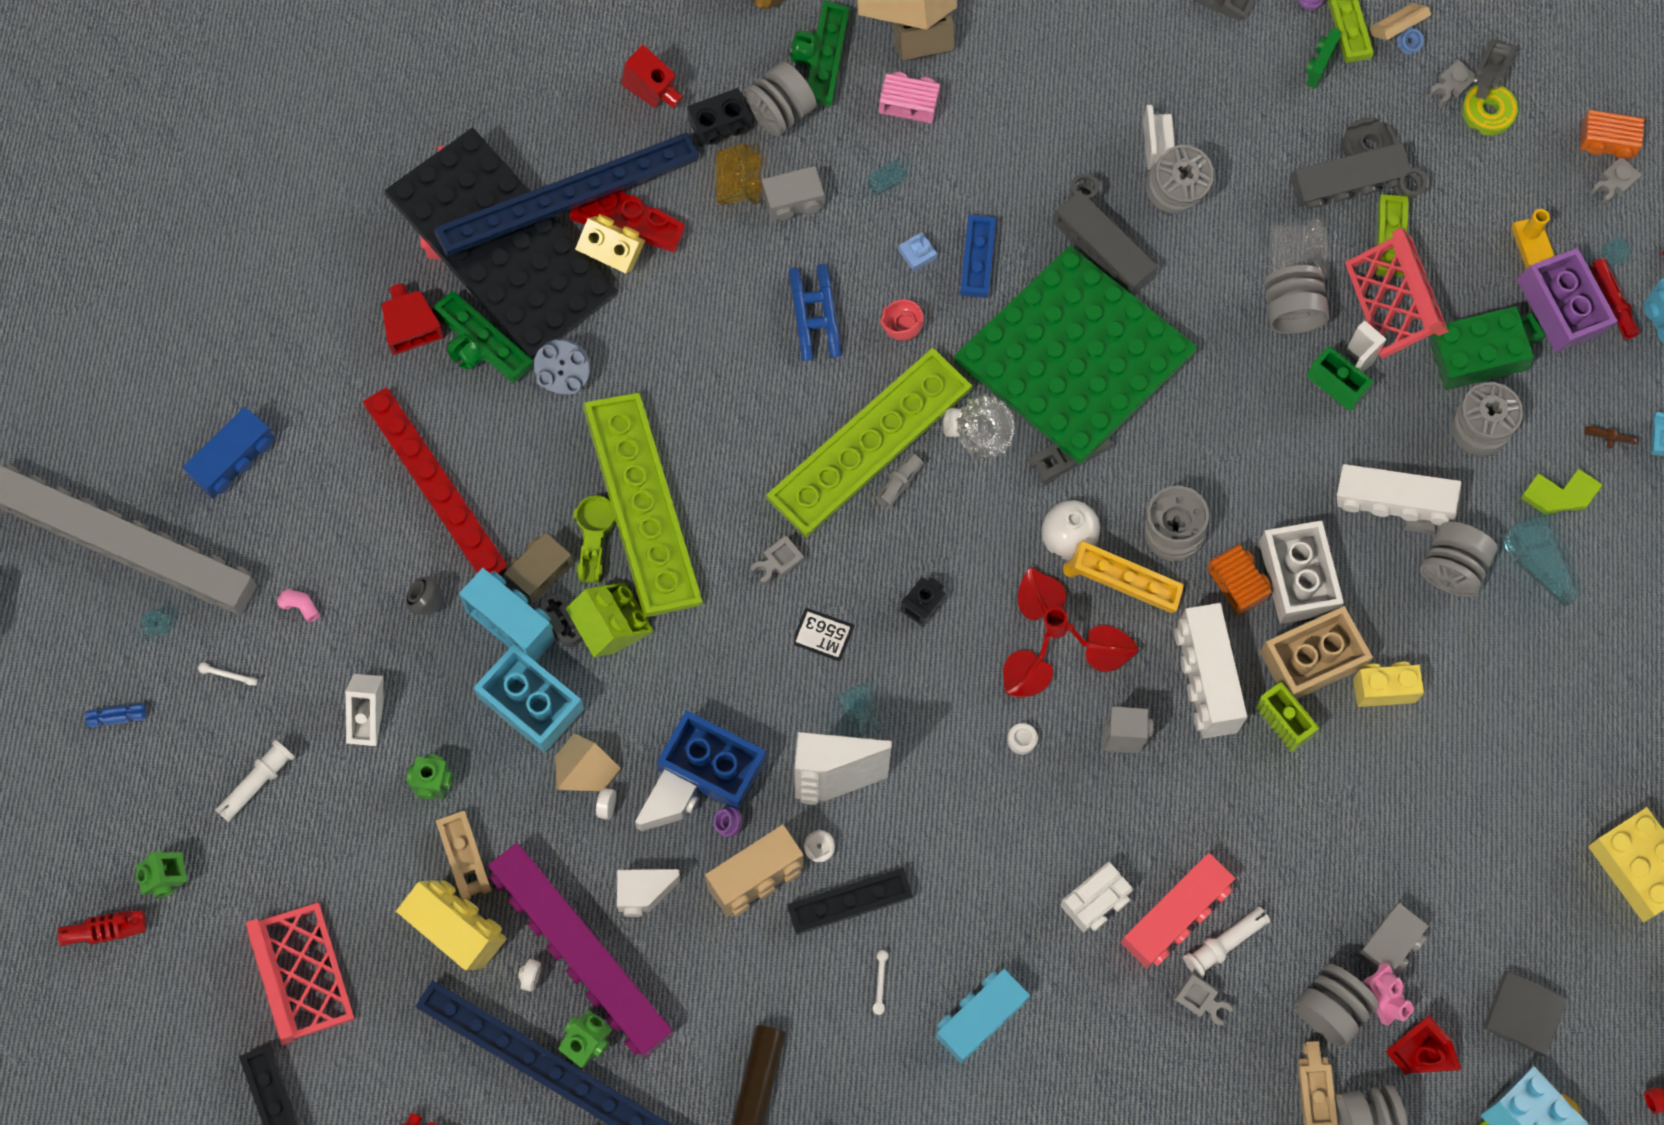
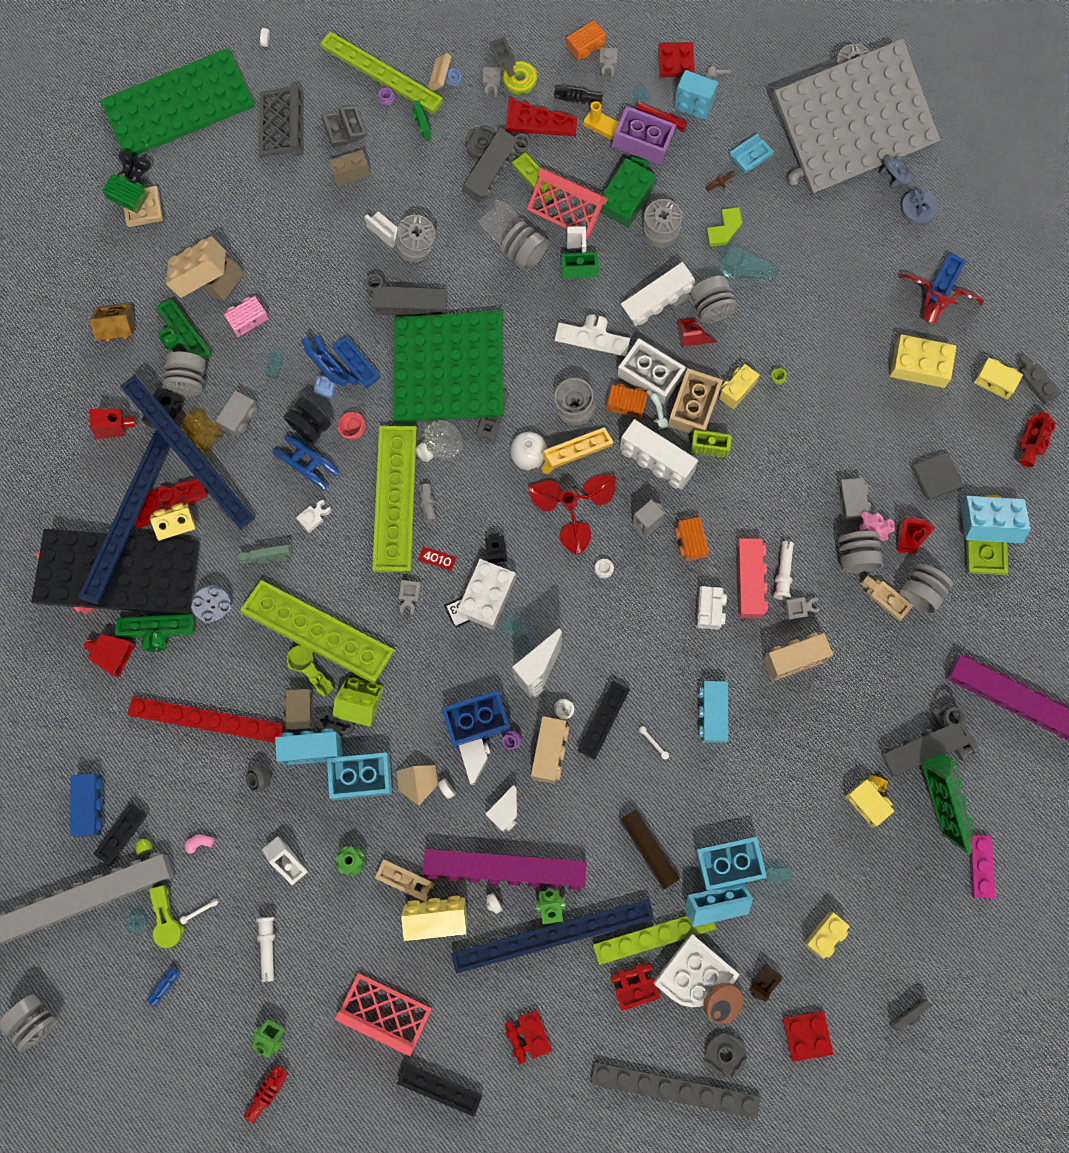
camera: 40 degrees left, 5 degrees up
(180, 667) = (169, 933): none -> lime piece
(232, 517) = (120, 834): none -> black plate
(241, 552) = (143, 846): none -> lime hinge
(669, 370) = (263, 556): none -> sand green plate
(698, 186) = (187, 452): none -> dark blue plate
(759, 378) = (311, 517): none -> white plate
(849, 550) = (437, 558): none -> red sticker
(859, 268) = (307, 420): none -> black wheel
(862, 639) = (486, 594): none -> white brick
(951, 219) = (342, 377): none -> blue piece
(1139, 1047) = (797, 656): none -> tan brick
(1155, 802) = (692, 539): none -> orange brick
(1187, 38) = (349, 168): none -> dark tan brick
(1256, 640) = (661, 421): none -> light aqua piece
(1275, 472) = (593, 337): none -> white plate
(1397, 576) = (692, 333): none -> red slope
(1446, 715) = (775, 375): none -> lime hinge
(1456, 170) = (535, 120): none -> red wing
(1544, 194) = (568, 93): none -> black hinge

